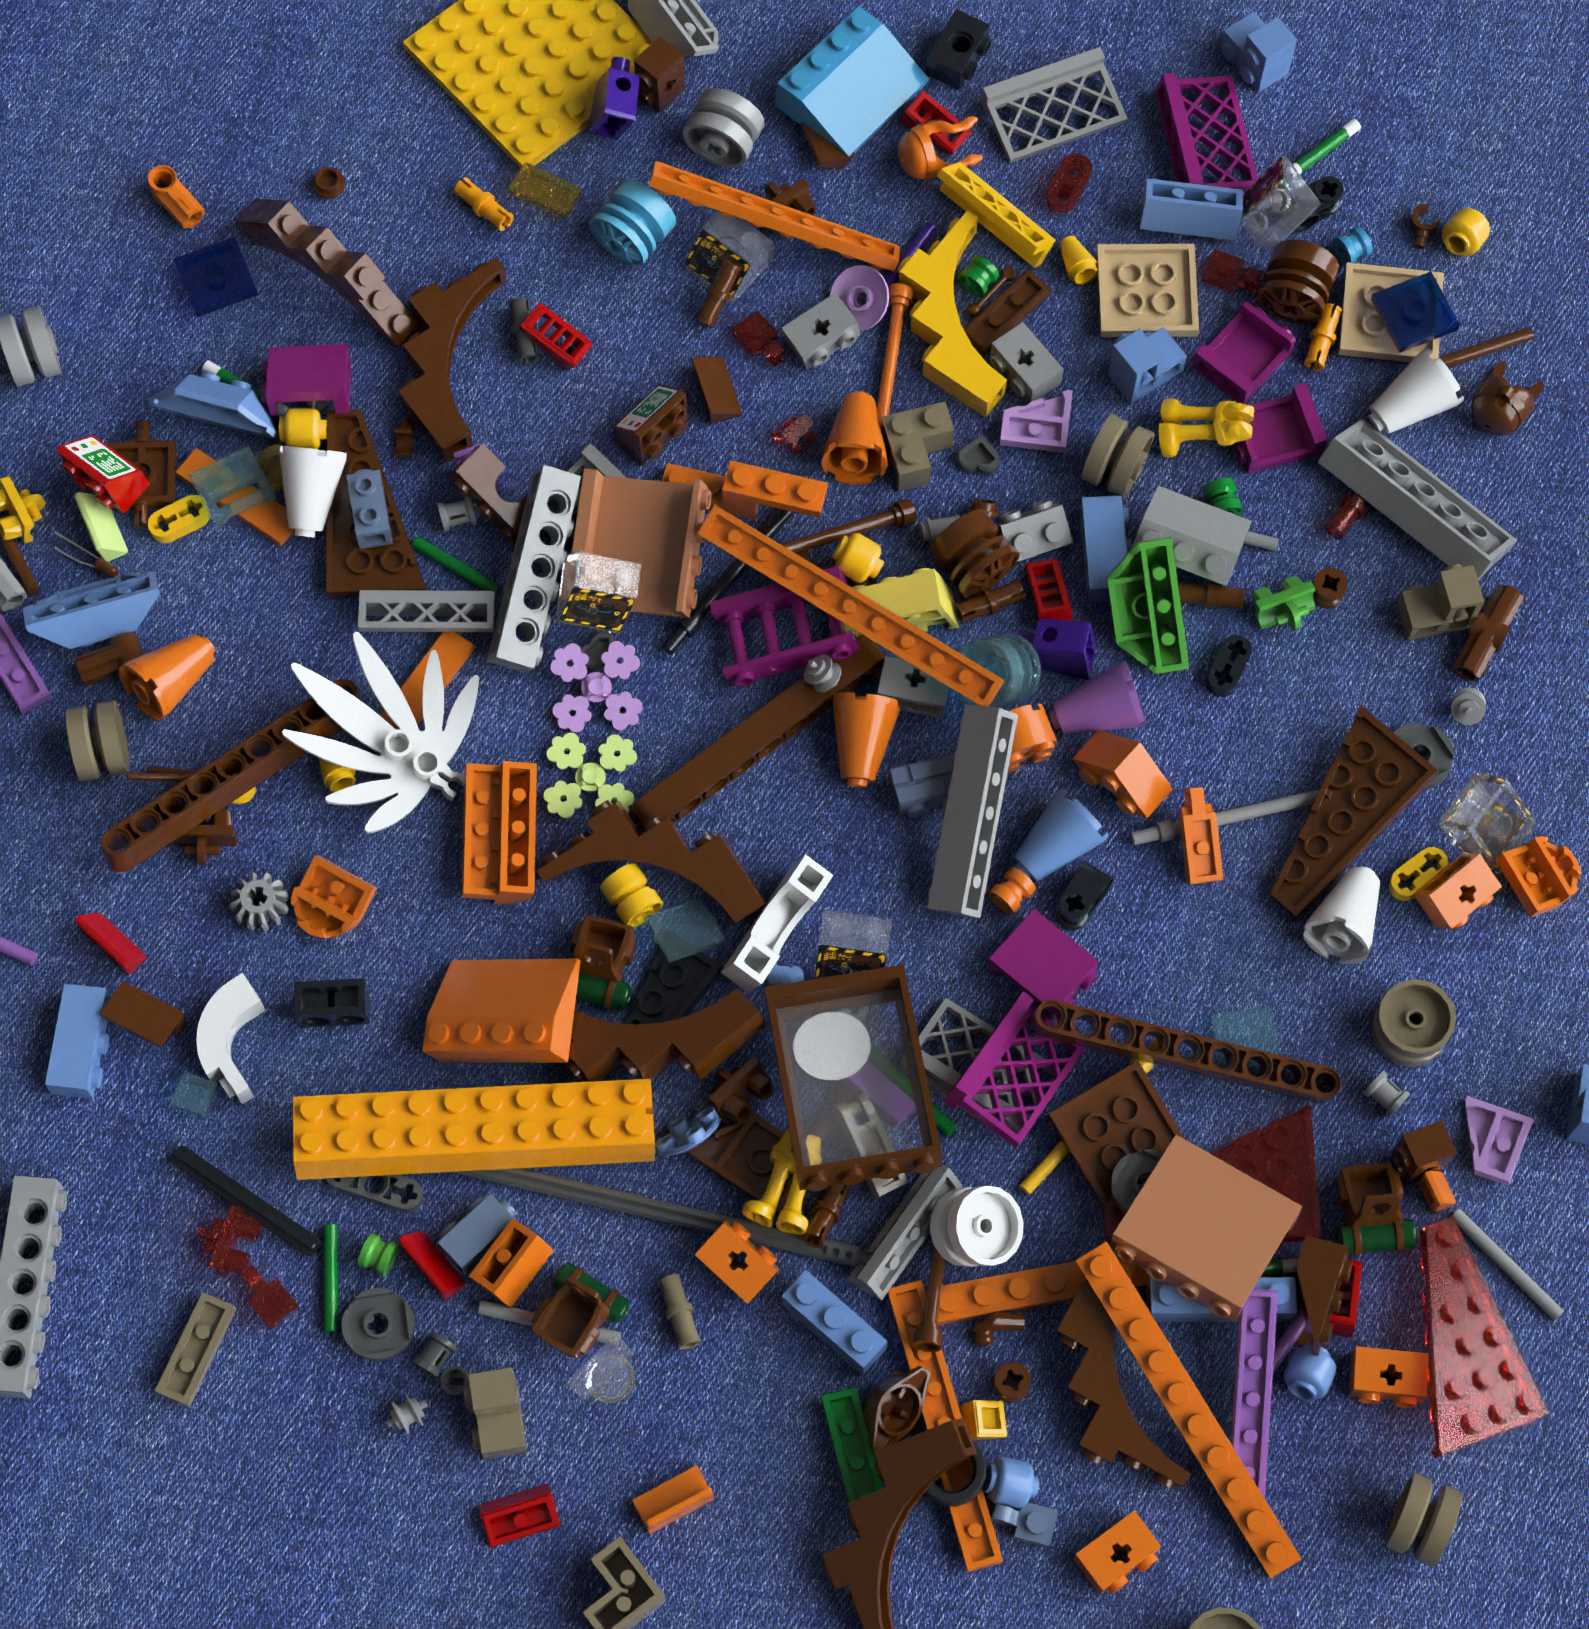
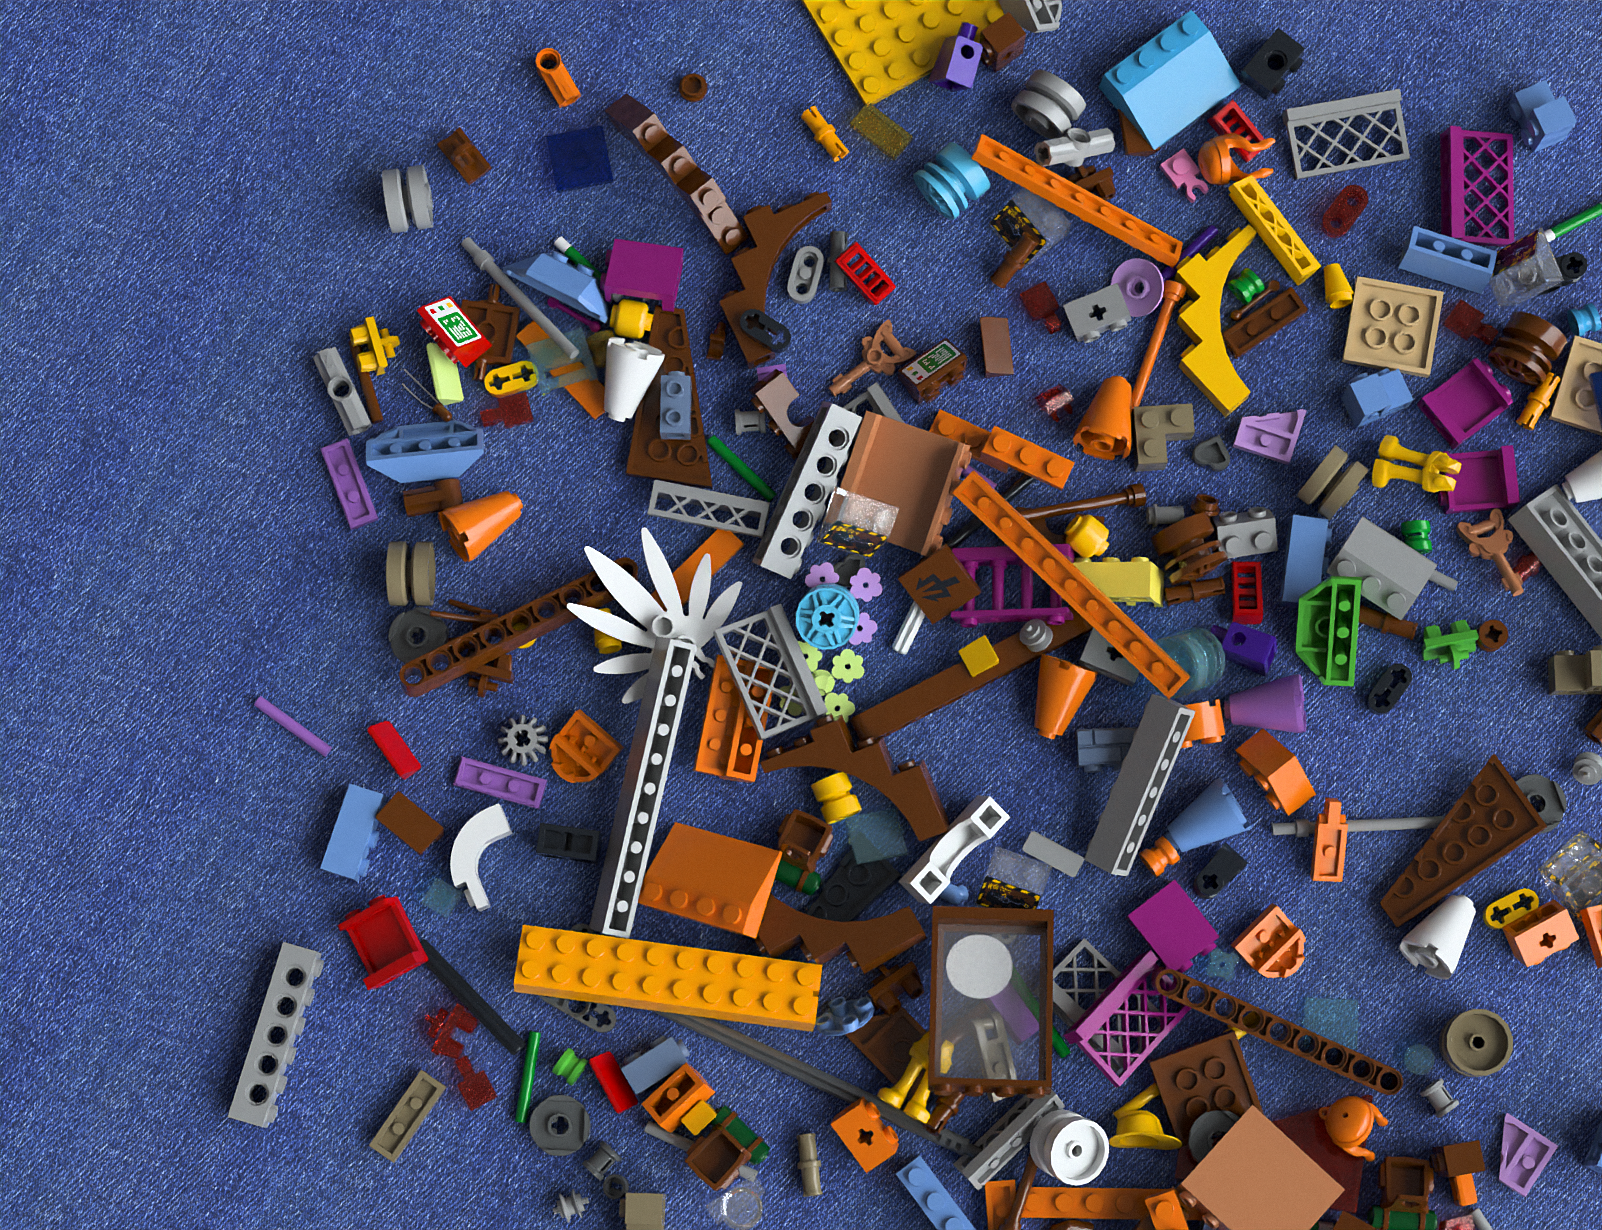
camera: 15 degrees right, 10 degrees up
(85, 295) = (464, 156): none -> reddish brown hips
(109, 797) = (411, 622): none -> dark grey plate
(128, 401) = (486, 262): none -> light grey bar
(133, 1154) = (384, 940): none -> red panel
(184, 550) = (512, 410): none -> clear red plate
(213, 432) = (554, 303): none -> magenta hinge
(241, 955) = (500, 782): none -> medium lavender tile
(406, 919) = (643, 787): none -> light grey brick
(455, 412) = (768, 324): none -> black beam
(490, 353) = (805, 276): none -> light grey plate
(538, 1279) = (699, 1117): none -> yellow slope
(550, 751) = (789, 656): none -> light grey fence
(583, 717) = (827, 598): none -> medium azure wheel
(584, 424) = (874, 359): none -> nougat piece
(684, 683) = (908, 629): none -> white axle
(702, 640) = (939, 584): none -> reddish brown tile
(760, 164) = (1074, 147): none -> light grey piece
(763, 708) = (978, 656): none -> yellow slope
(885, 175) = (1181, 172): none -> bright pink plate
(891, 907) = (1053, 854): none -> light grey slope
(1037, 368) = (1271, 361): light grey brick -> none
(1058, 1197) = (1141, 1130): none -> yellow piece
(1100, 1001) = (1216, 958): none -> clear light blue plate
(1159, 962) = (1271, 944): none -> orange slope
(1291, 1134) = (1354, 1129): none -> orange hair
(1308, 495) = (1492, 547): none -> nougat piece
(1353, 1057) = (1418, 1059): none -> clear light blue plate

